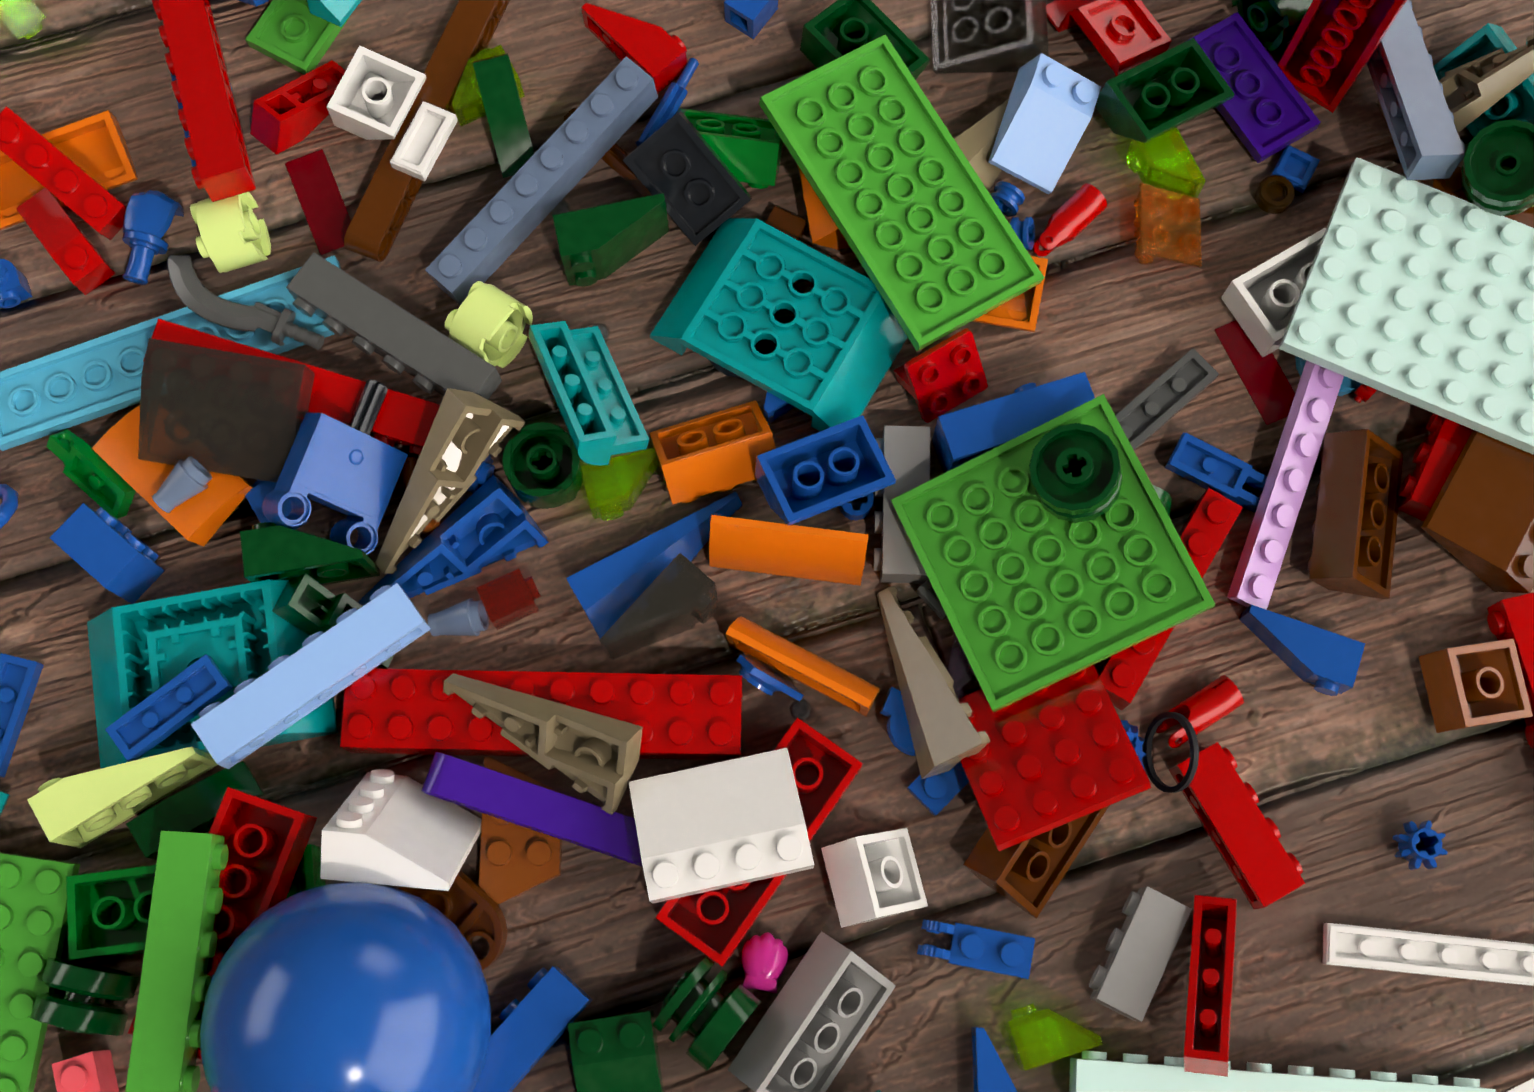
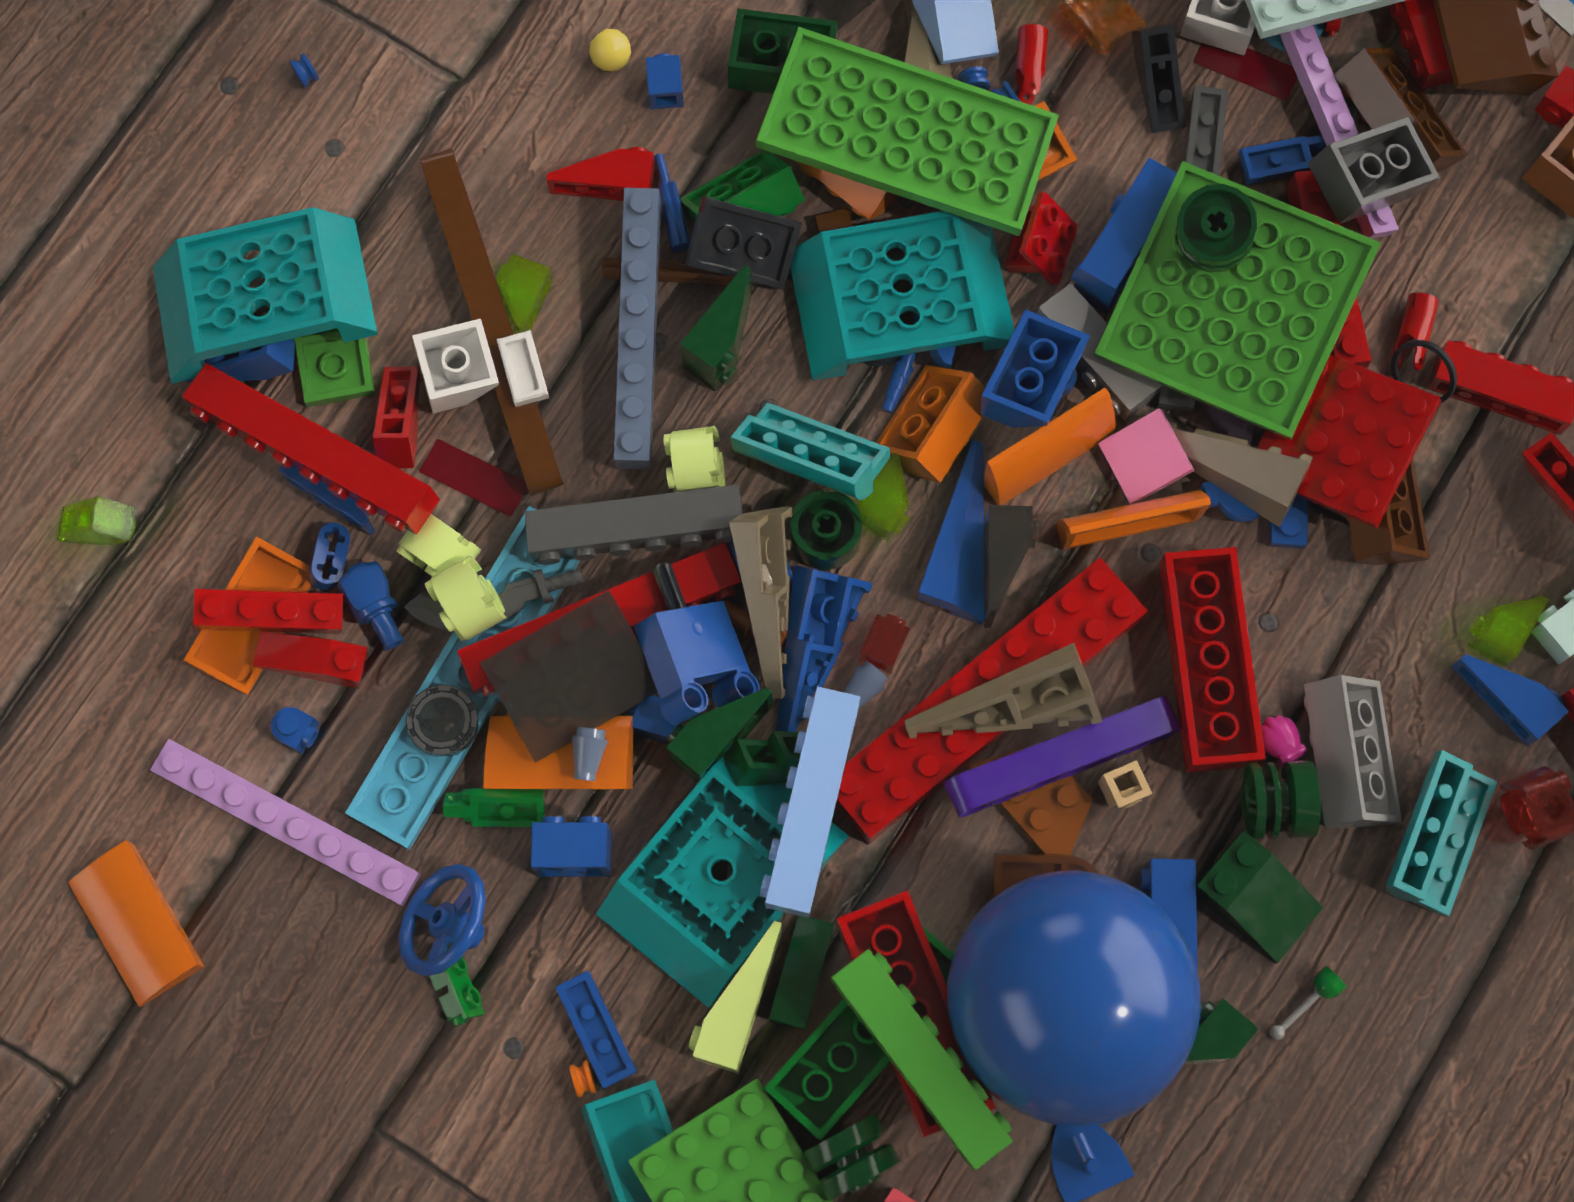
camera: 40 degrees left, 0 degrees up
(108, 368) = (442, 720): none -> tile
(146, 164) = (321, 554): none -> blue beam
(168, 708) = (731, 910): blue plate -> none
(203, 284) = (467, 599): none -> yellowish green brick
(397, 835) = (975, 856): white slope -> none
(504, 113) = (566, 303): dark green slope -> none
(588, 886) = (1124, 786): none -> tan brick
(720, 825) = (1183, 664): white slope -> none
(721, 394) = (898, 380): none -> blue animal
(765, 678) = (1112, 549): blue piece -> none
(865, 625) = (1146, 456): none -> bright pink tile
(874, 876) = (1303, 621): white slope -> none
(982, 949) = (1413, 608): blue hinge -> none
(1139, 953) = (1517, 523): light grey brick -> none
(1168, 318) = (1159, 76): none -> black slope
(1277, 539) = (1373, 170): none -> dark grey brick
(1309, 651) = (1449, 232): blue slope -> none

